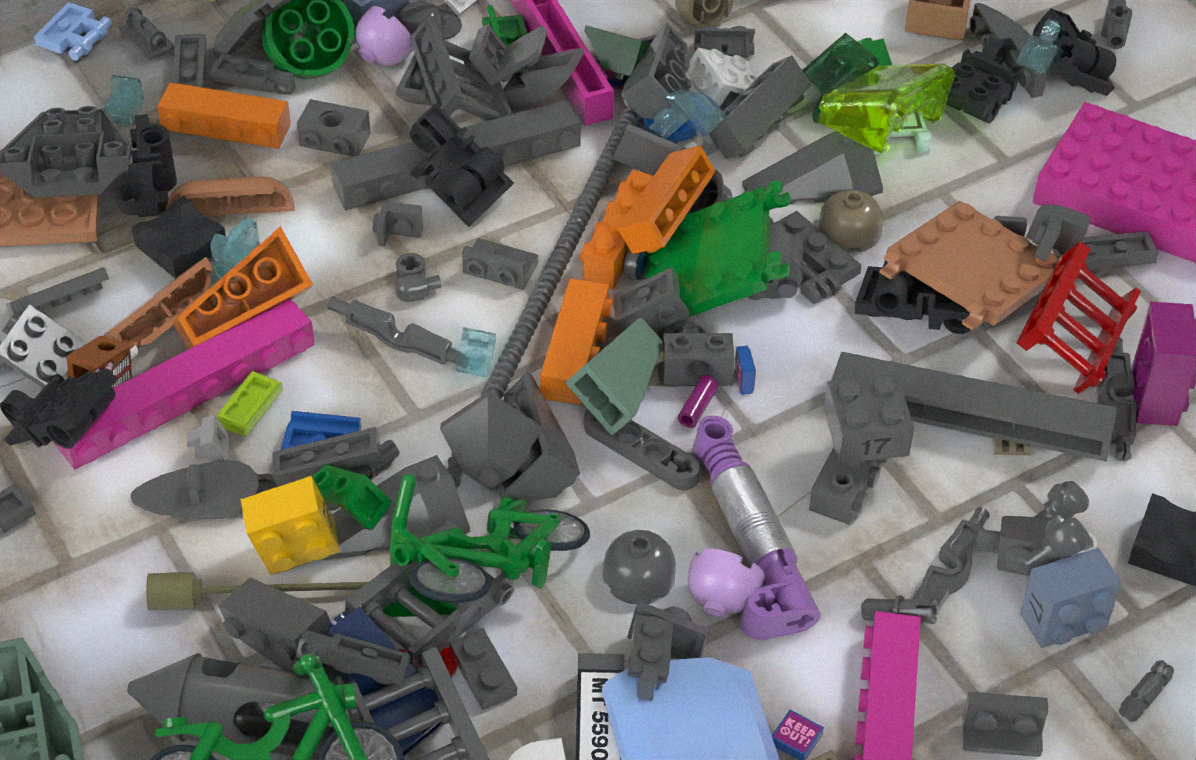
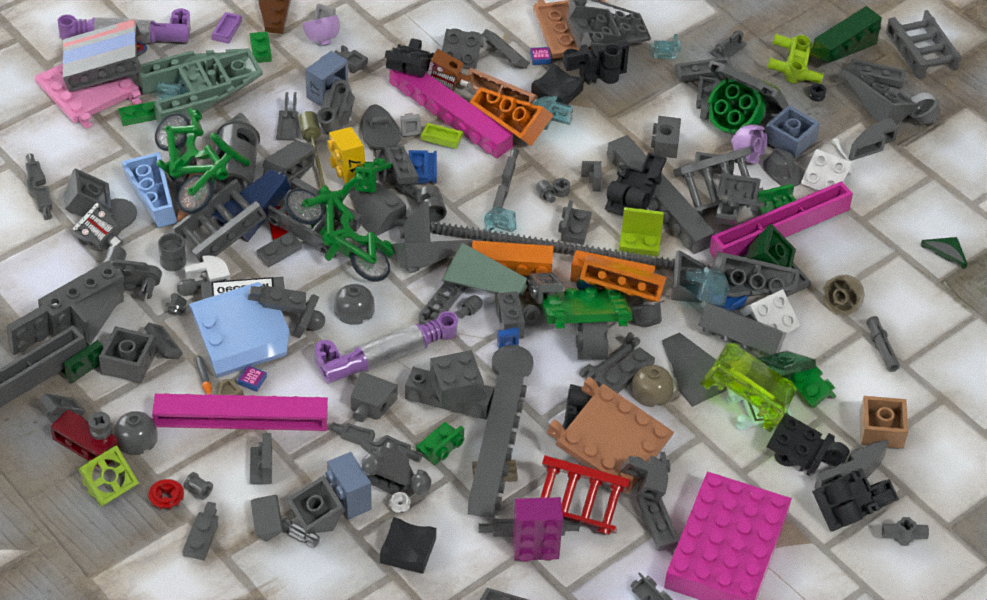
camera: 80 degrees right, 0 degrees up
(64, 543) = (323, 74): none -> sand blue brick
(65, 31) = (721, 12): light blue plate -> none
(84, 254) = (540, 55): none -> tile
(131, 630) = (288, 120): none -> dark grey arm
(145, 537) = (336, 106): none -> dark grey piece
(224, 115) = (660, 86): orange brick -> none
(235, 196) = (600, 105): nougat brick -> none
(356, 656) = (253, 180): dark grey hinge -> none
(415, 444) = (437, 208): none -> dark grey wheel
(545, 191) = (641, 231): none -> lime bracket
(664, 410) = (470, 306): none -> dark grey cylinder
(698, 401) = (482, 321): magenta hinge -> none
(722, 582) = (340, 331): lavender cylinder -> none
(736, 39) = (808, 306): dark grey hinge -> none
(788, 376) = (512, 360): none -> dark grey tile
(860, 560) = (372, 397): none -> dark grey torso
(902, 606) = (336, 415): dark grey axle -> none
(956, 480) = (441, 442): none -> green bracket
(1040, 52) = (829, 465): clear light blue plate -> none
(1108, 649) = (317, 506): none -> dark grey slope
(1123, 728) = (266, 517): none -> dark grey slope

